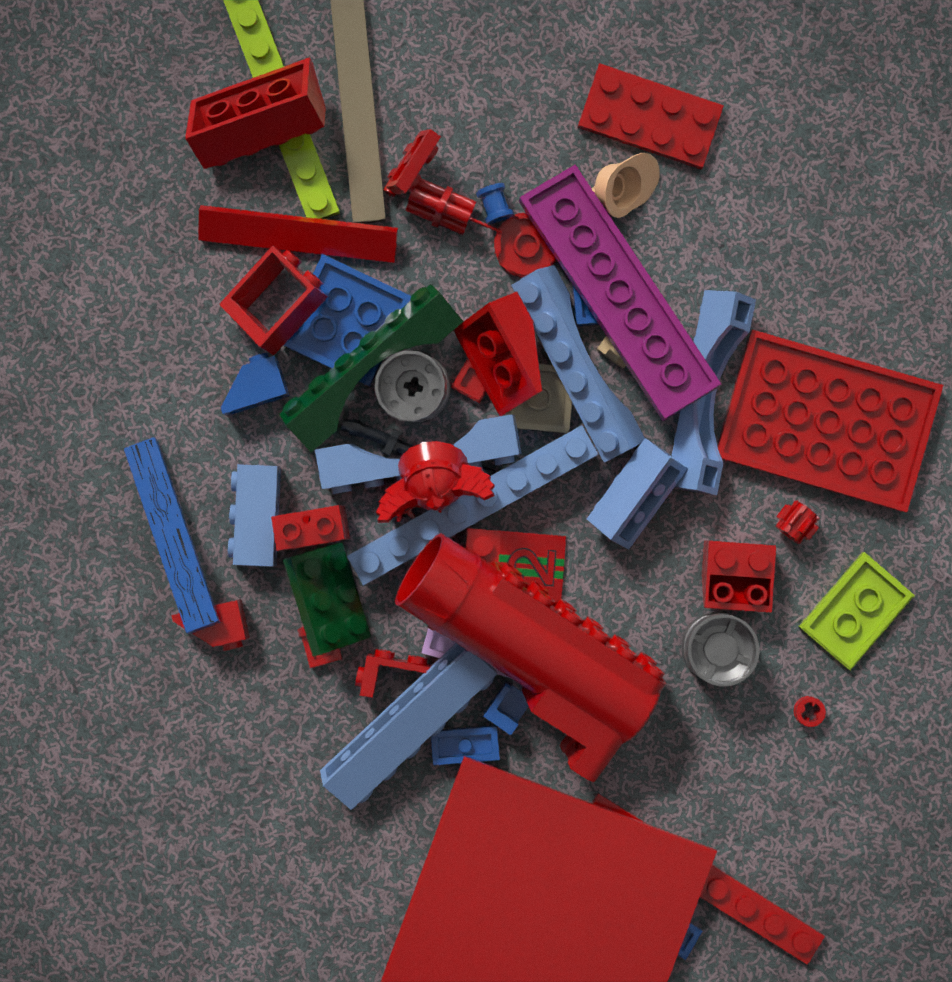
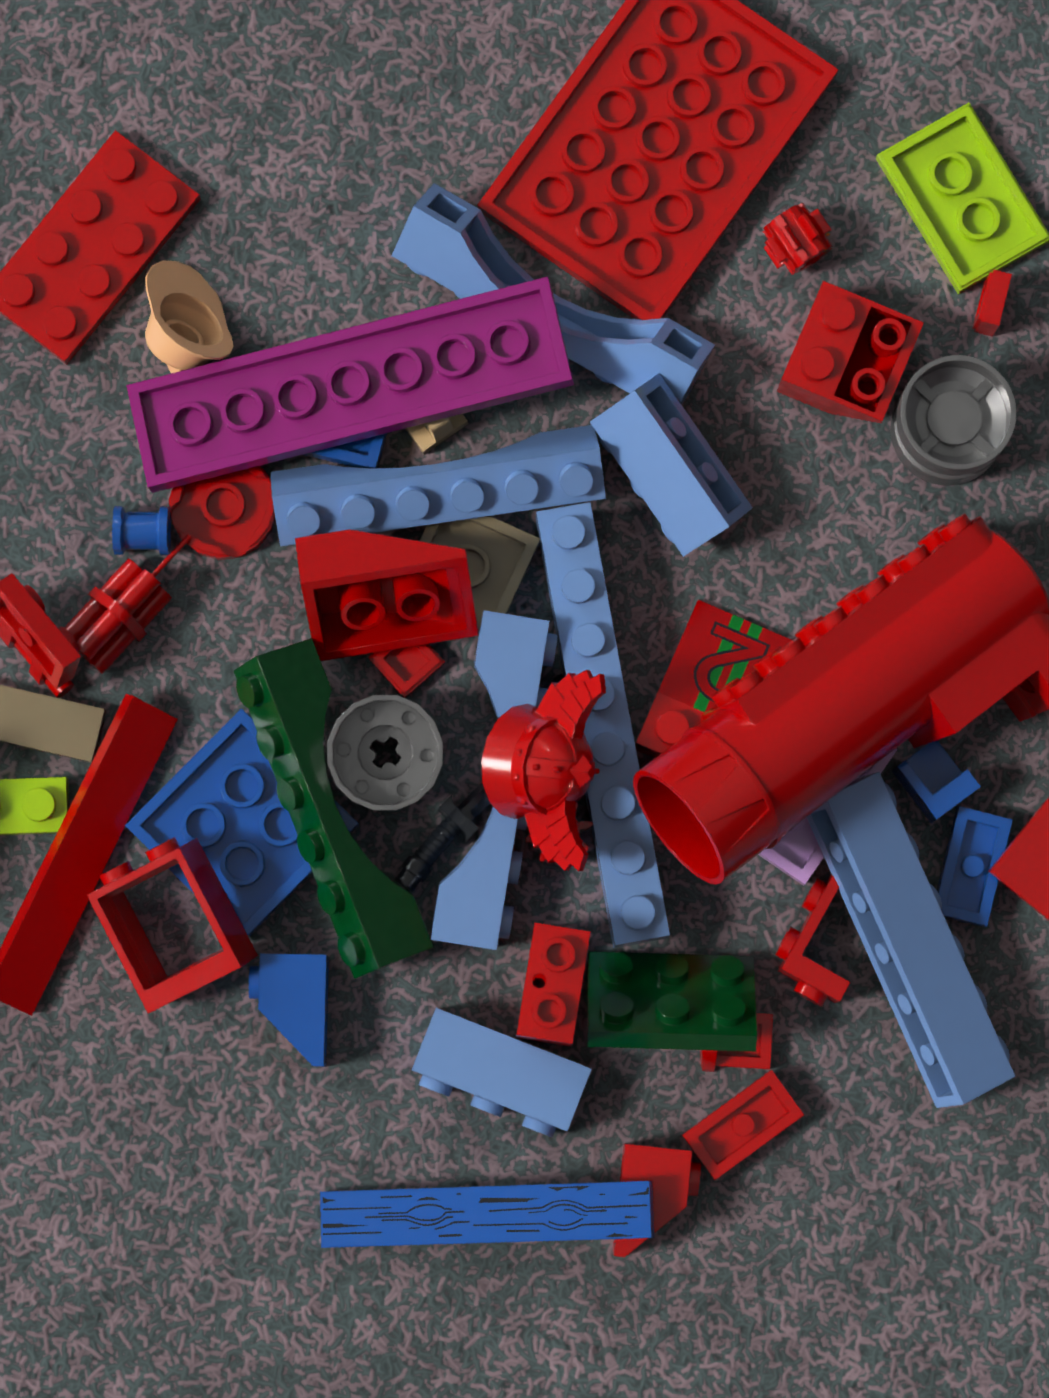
camera: 75 degrees left, 5 degrees down
(272, 663) = (742, 1124): none -> red plate
(799, 648) = (991, 302): none -> red tile

